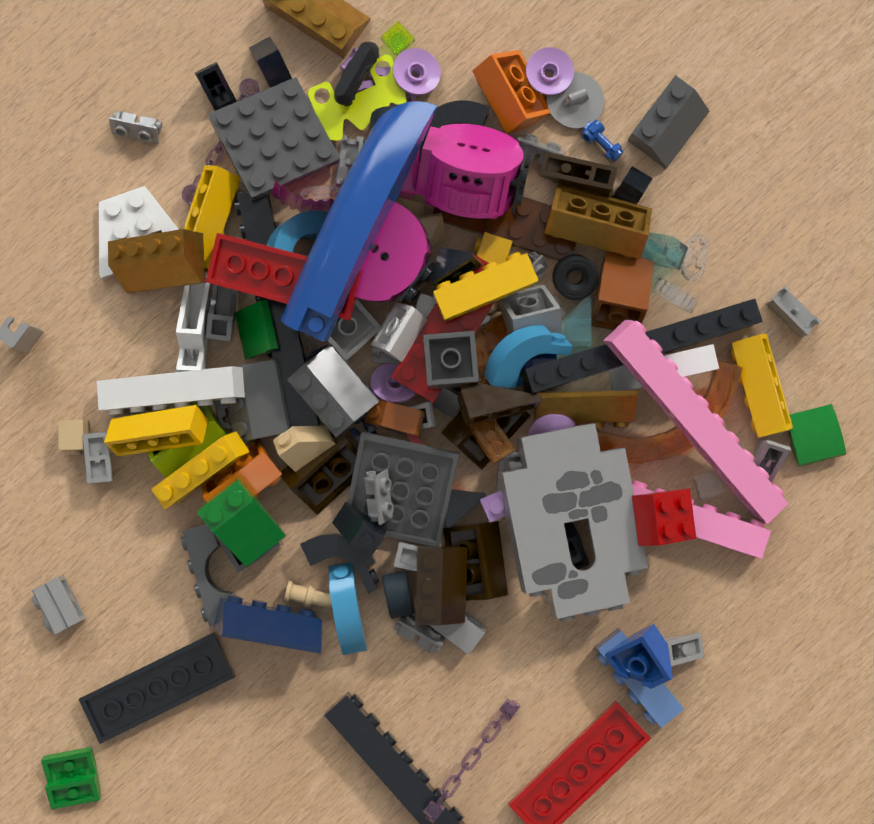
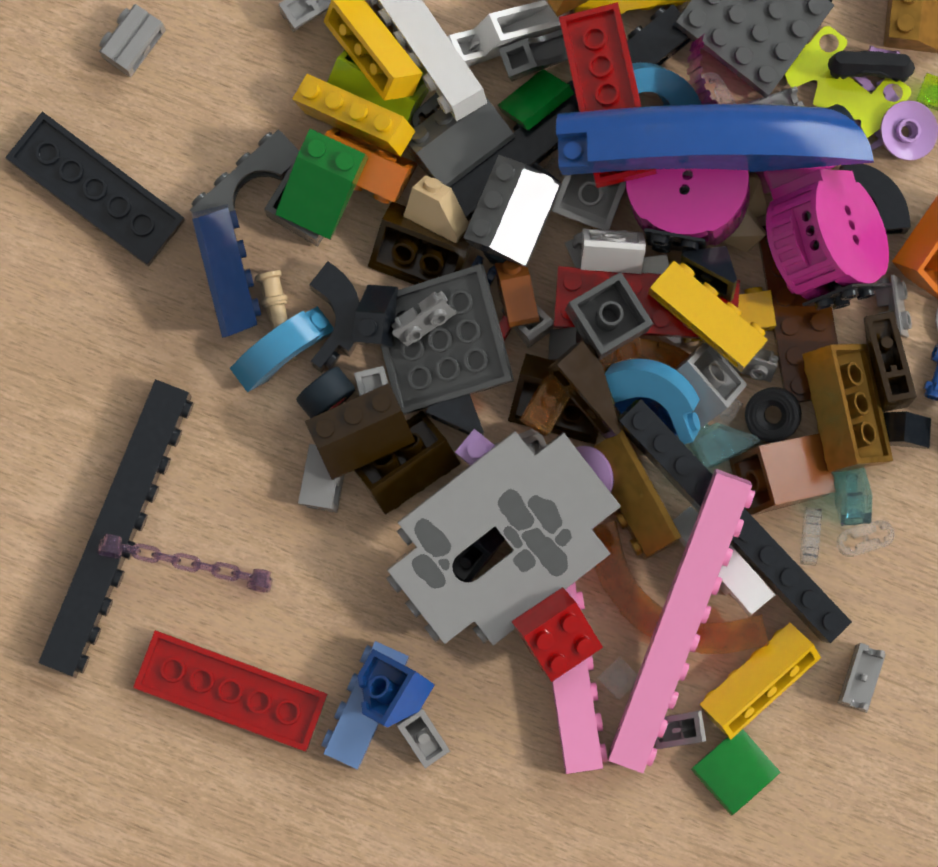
camera: 60 degrees right, 5 degrees down
(383, 384) = (544, 270): lavender dish -> none
(429, 638) = (294, 454): light grey hinge -> none

